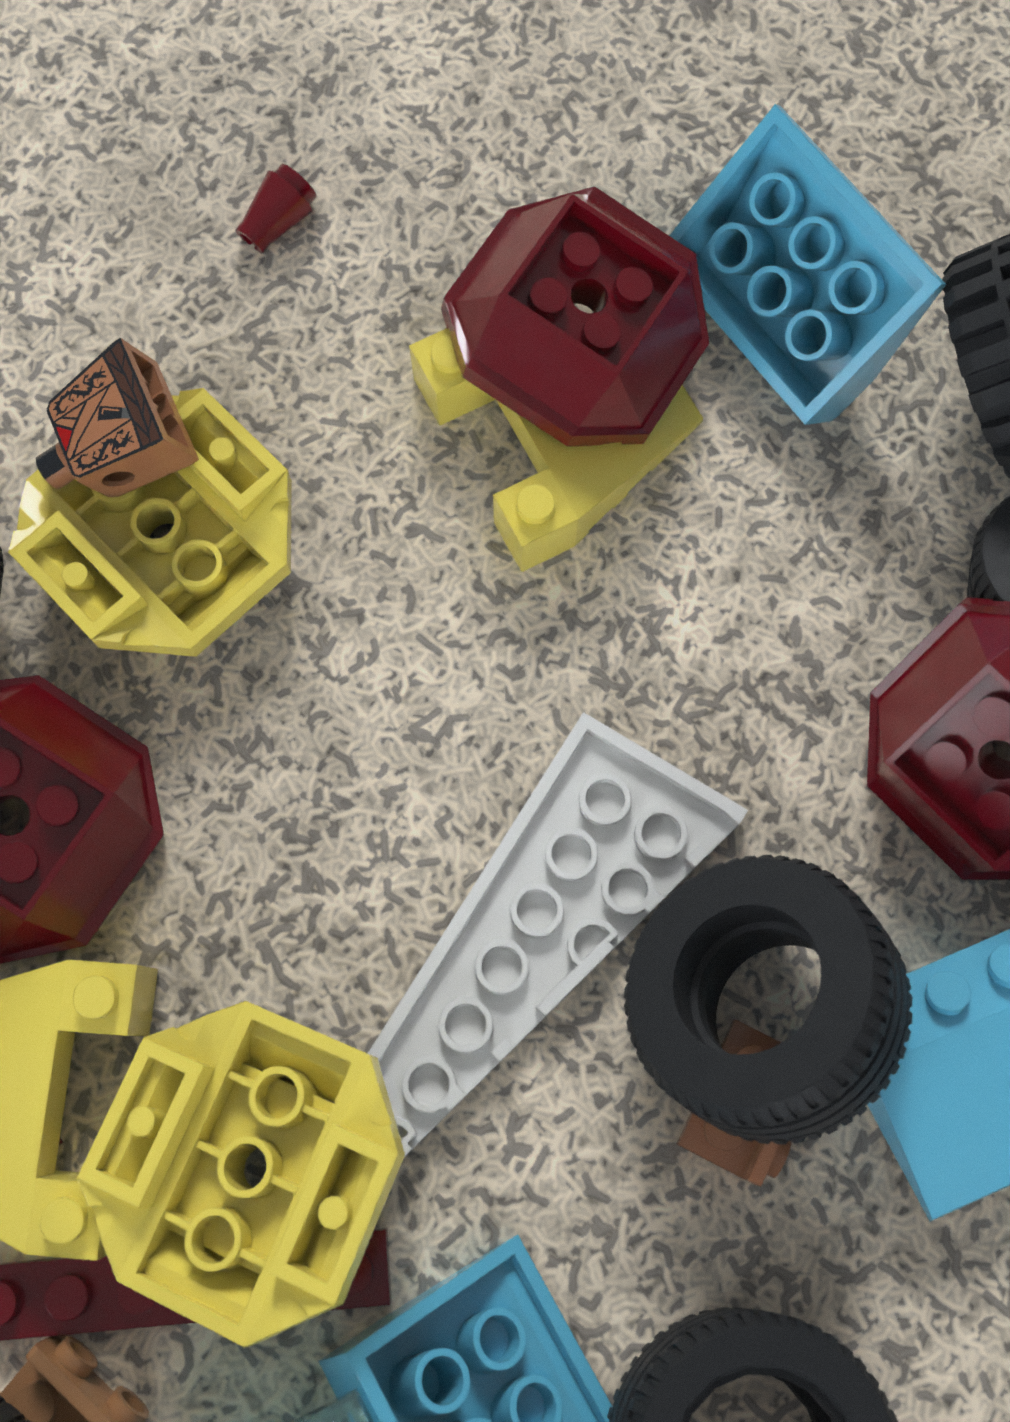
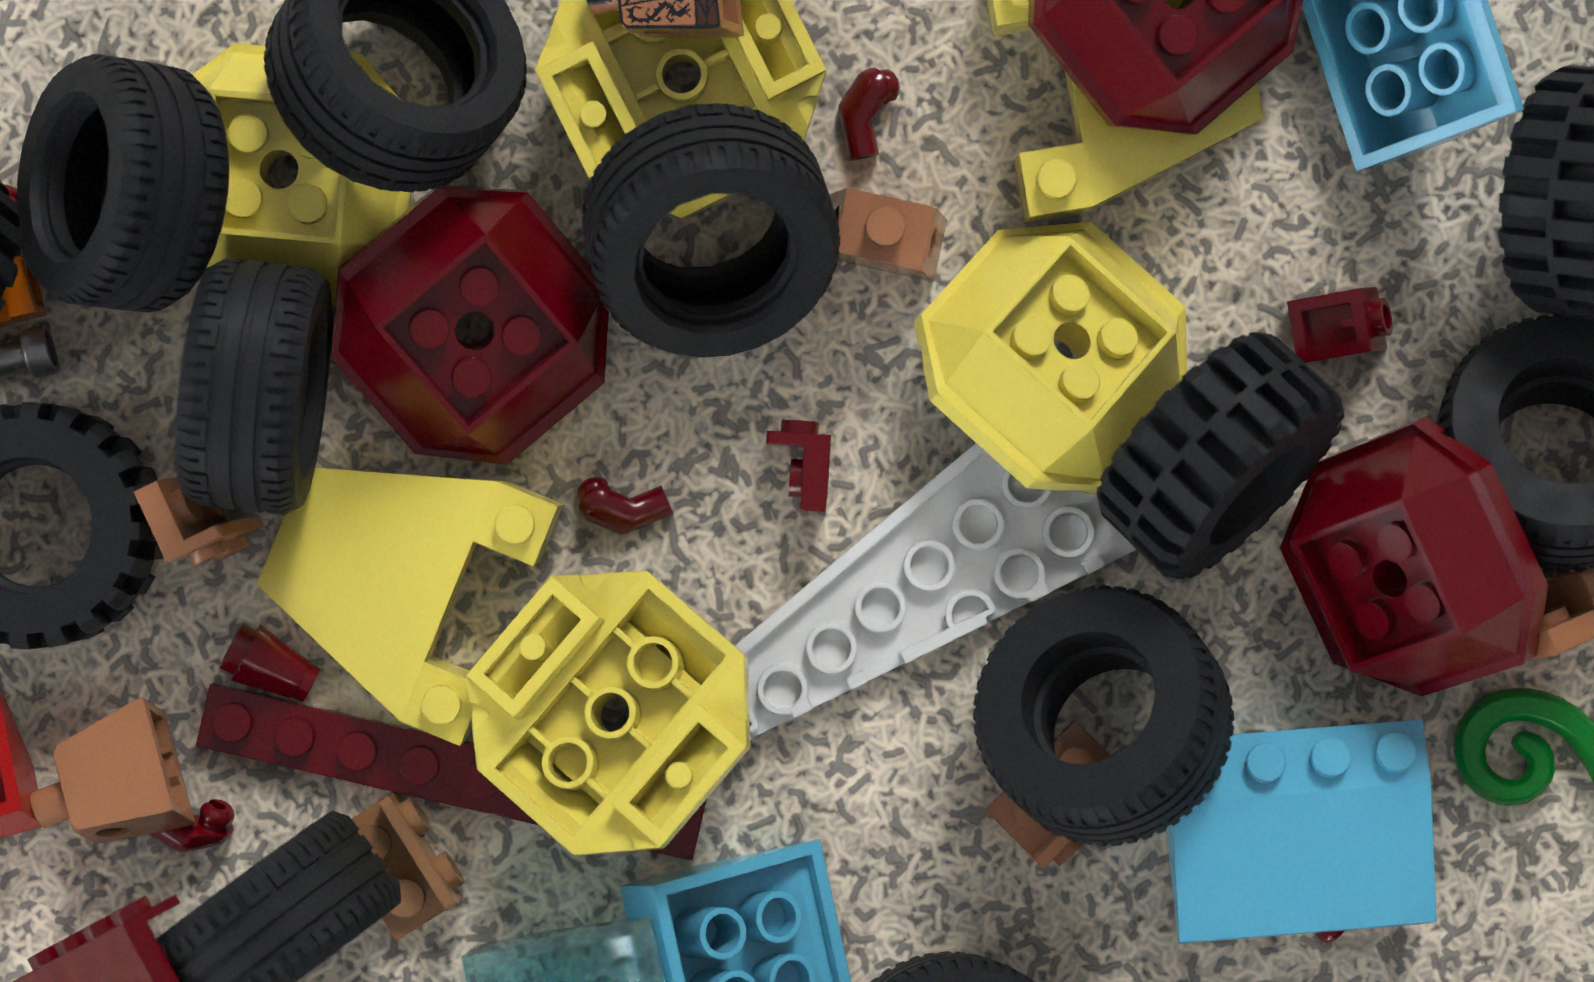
camera: 20 degrees right, 15 degrees up
(212, 958) = (618, 512): none -> dark red arm
(236, 729) = (686, 158): none -> black tyre
(337, 514) = (860, 105): none -> dark red arm
(392, 609) = (888, 233): none -> nougat torso
(392, 860) = (811, 474): none -> dark red bracket
(591, 672) = (1008, 386): none -> light yellow piece
(782, 693) = (1219, 454): none -> black tyre
(840, 565) = (1340, 324): none -> dark red bracket

